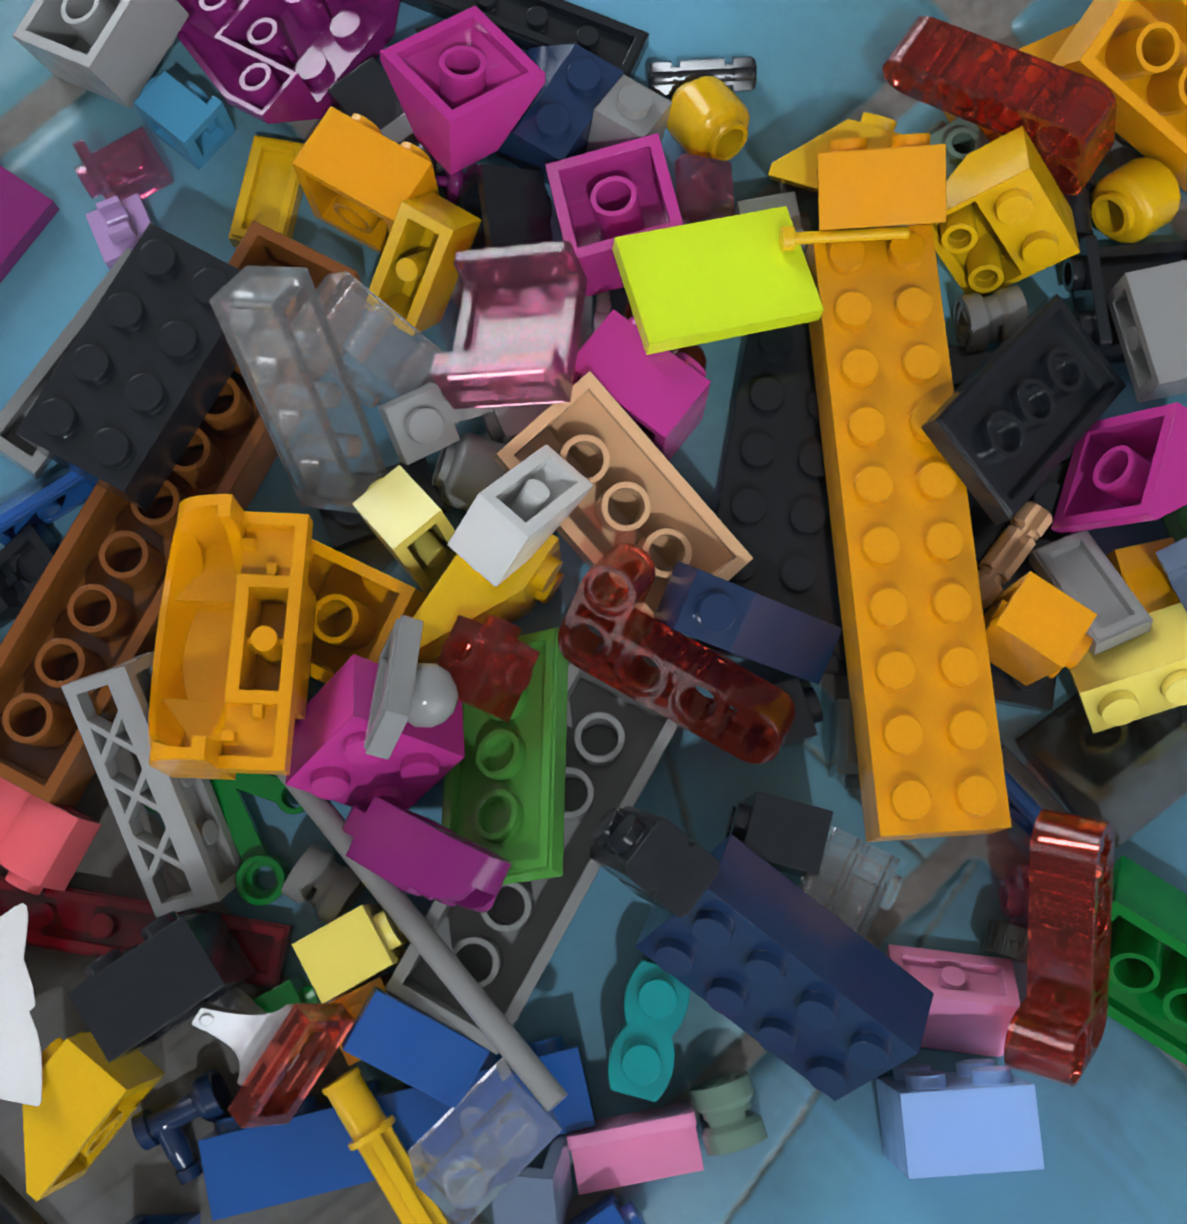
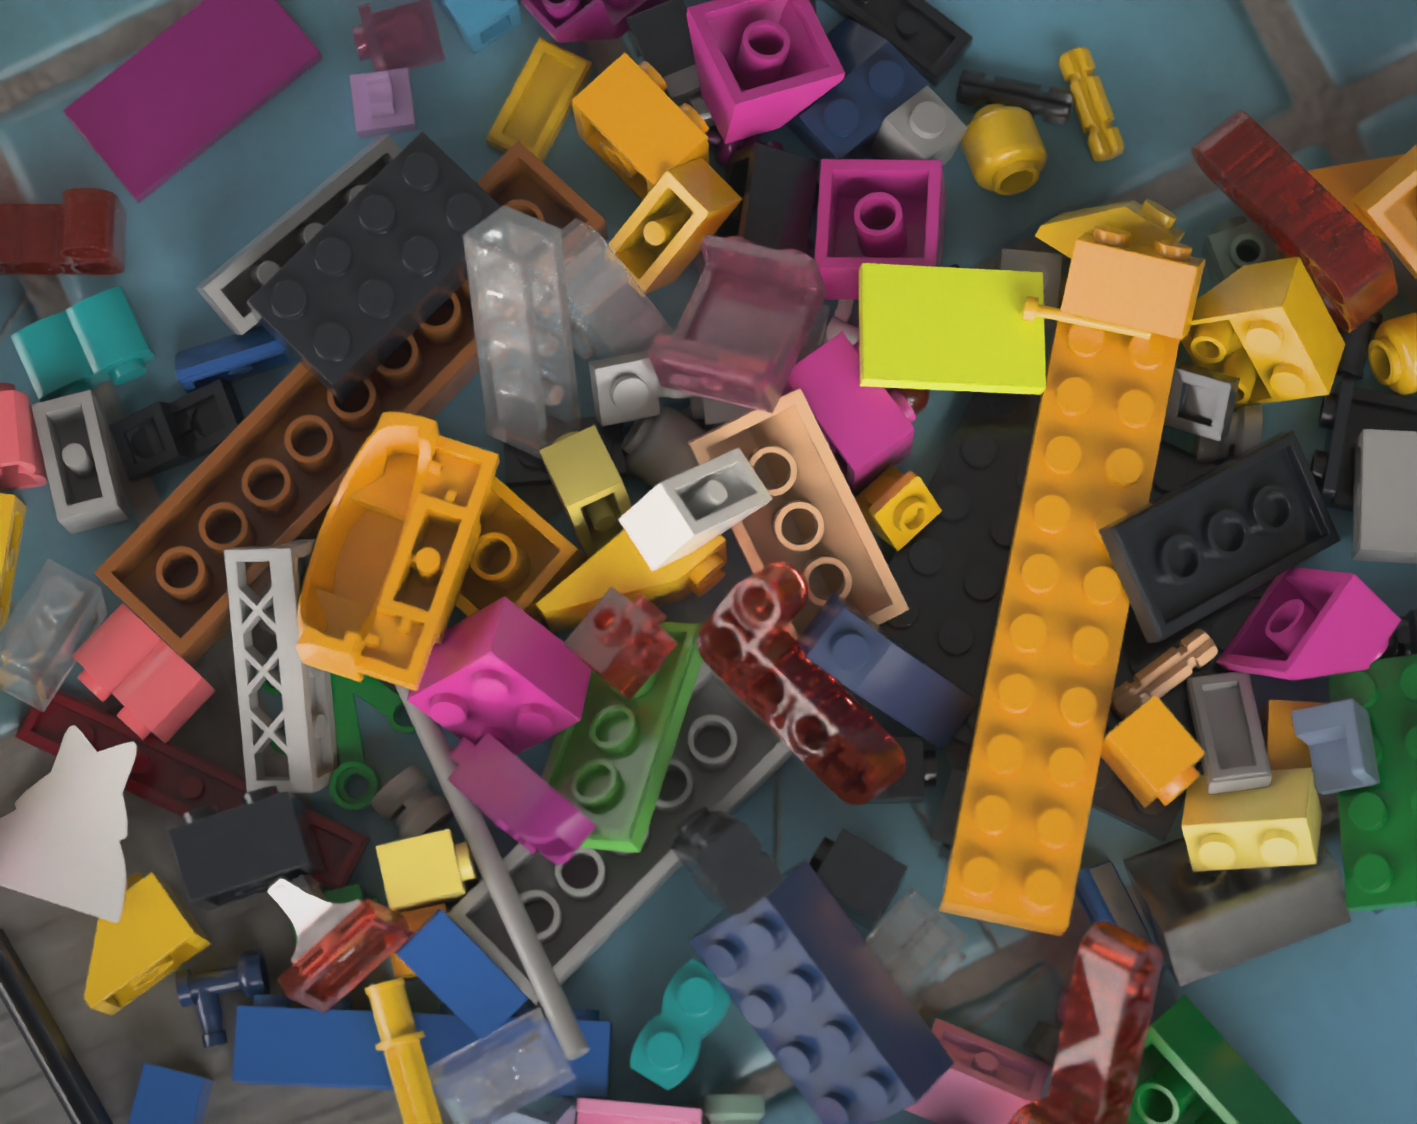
camera: 20 degrees right, 0 degrees up
(406, 690) = (544, 642): light grey tile -> none
(703, 188) = (972, 229): clear pink bracket -> none
(711, 465) = (897, 506): none -> yellow bracket
(773, 64) = (1091, 104): none -> yellow axle
(969, 287) = (1201, 401): none -> black tile

